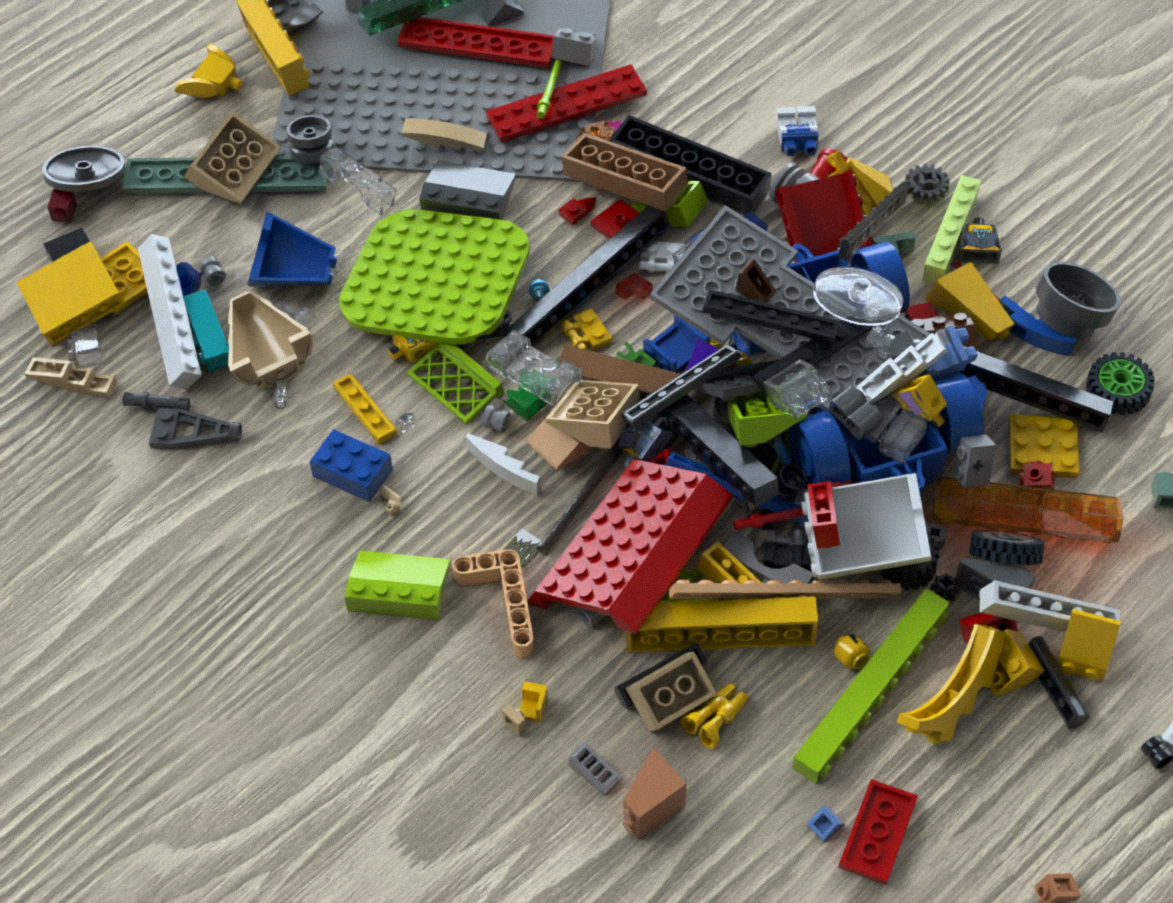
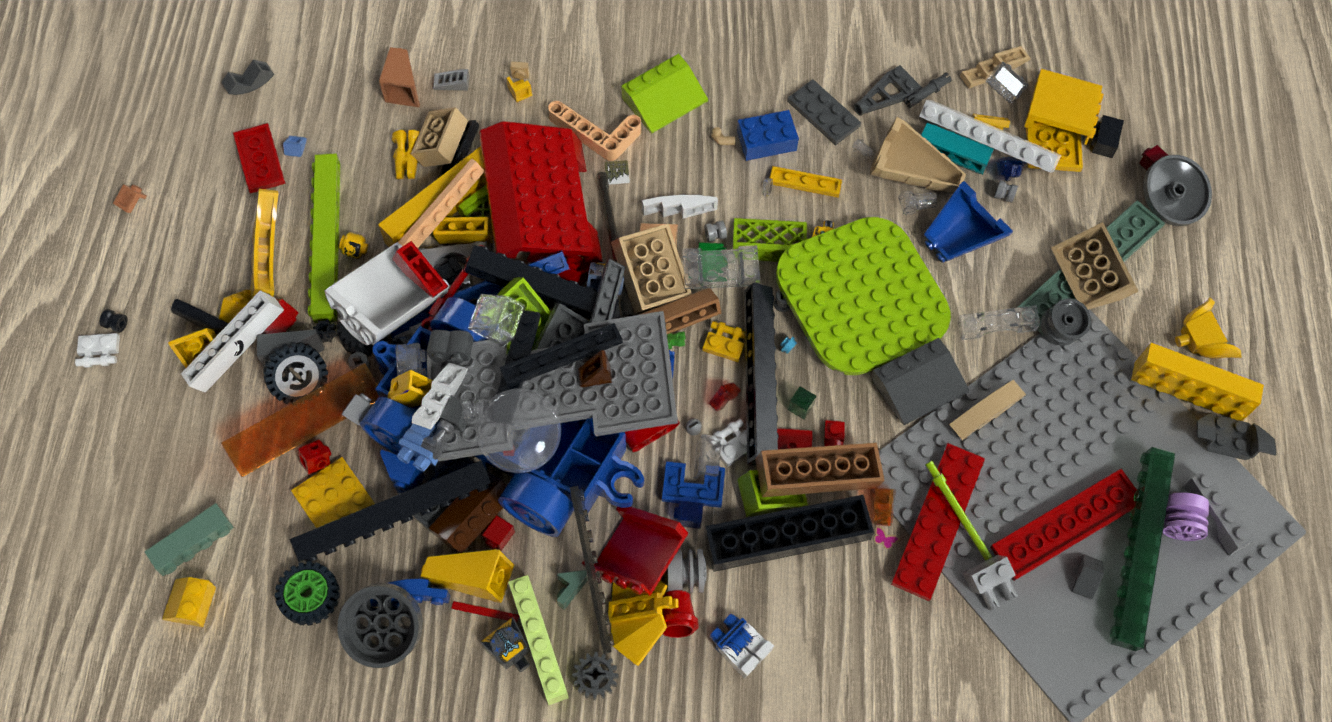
camera: 135 degrees right, 10 degrees up
(142, 333) = (998, 122): none -> yellow plate
(270, 457) = (824, 112): none -> dark grey plate
(578, 239) = (802, 402): none -> clear green brick

